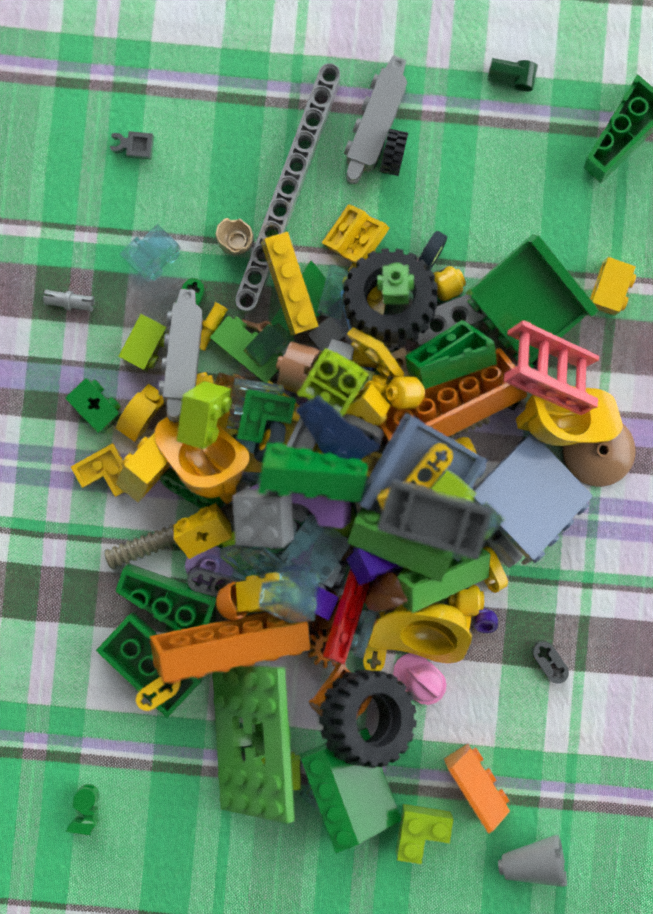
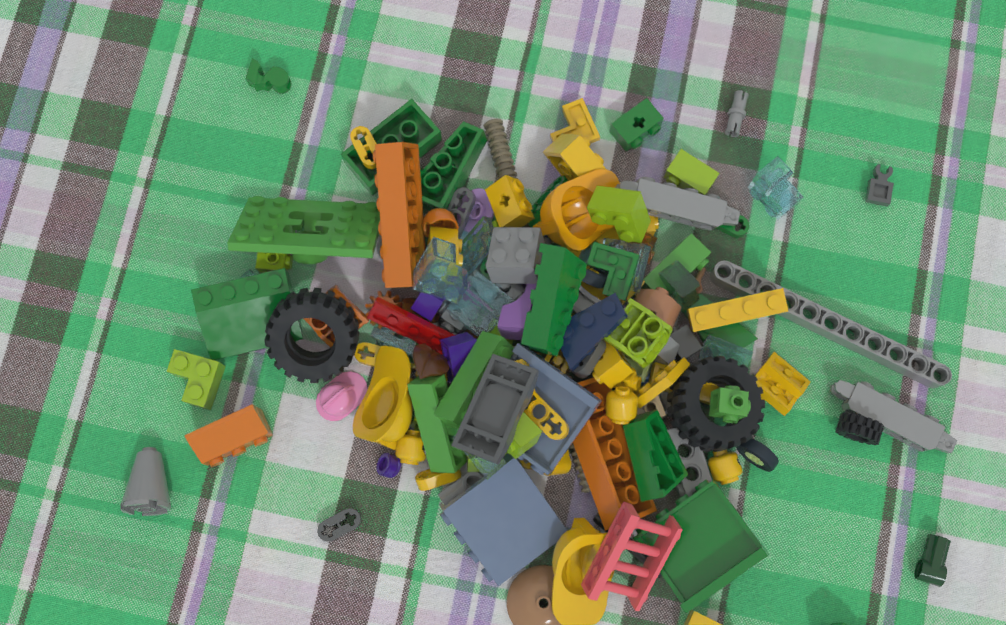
camera: 100 degrees right, 10 degrees down
(140, 412) = (625, 161): yellow brick -> none
(211, 324) = (704, 237): yellow pin -> none
(234, 236) = (786, 267): tan hair -> none

